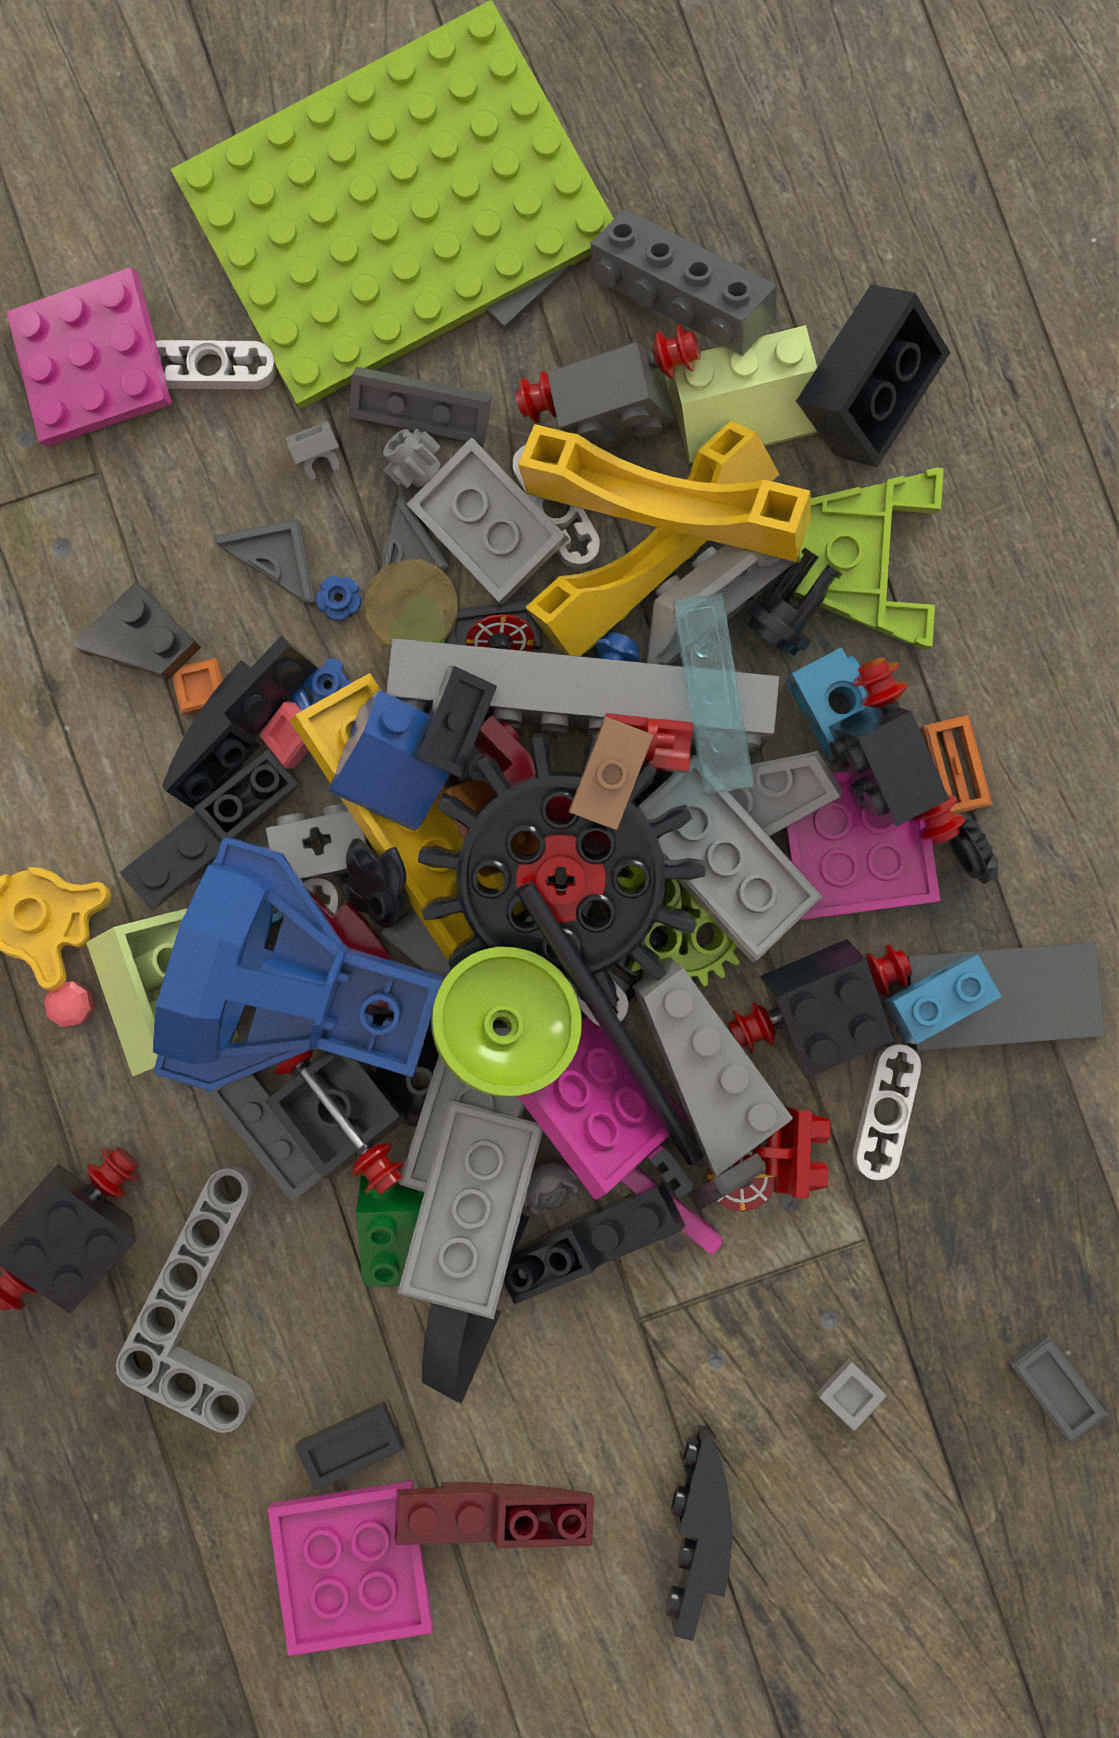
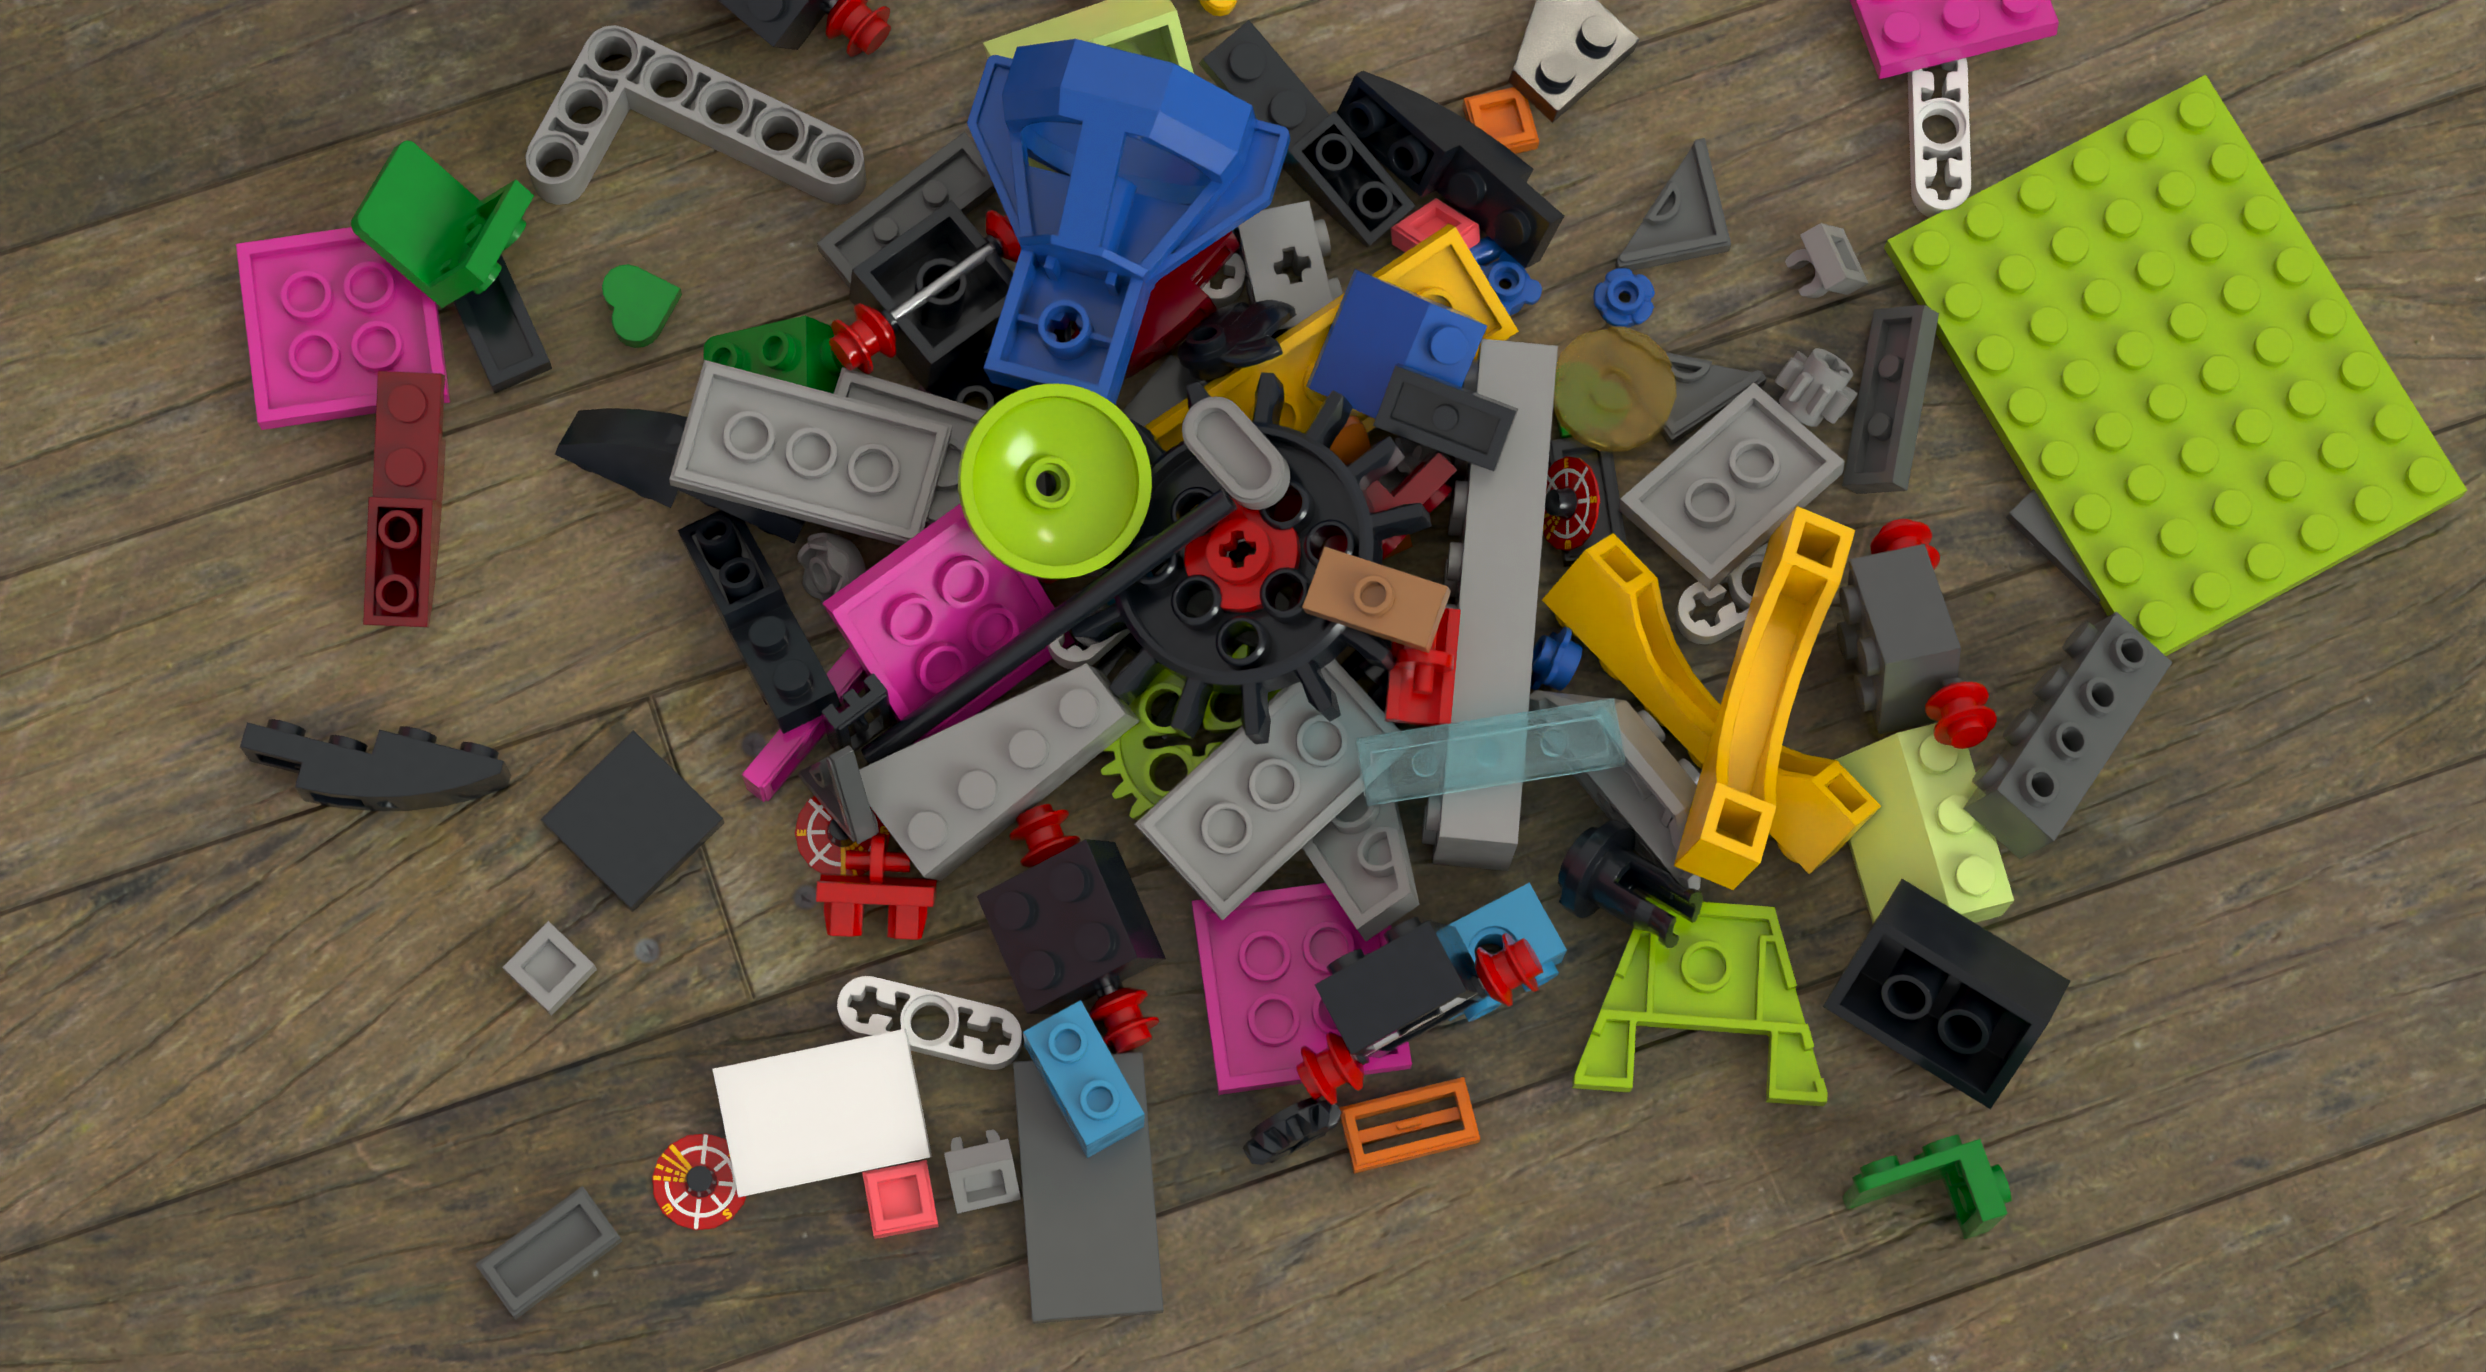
camera: 85 degrees right, 10 degrees down
(277, 1502) = (437, 227): none -> green bracket
(336, 1337) = (638, 303): none -> green tile
(484, 881) = (1236, 453): none -> light grey tile
(737, 1334) = (632, 821): none -> black tile
(958, 1190) = (822, 1112): none -> white tile
(998, 394) = (1973, 1186): none -> green bracket
(1000, 1276) = (697, 1182): none -> red piece
(1002, 1073) = (982, 1173): none -> light grey tile
(1014, 1131) = (900, 1199): none -> coral tile

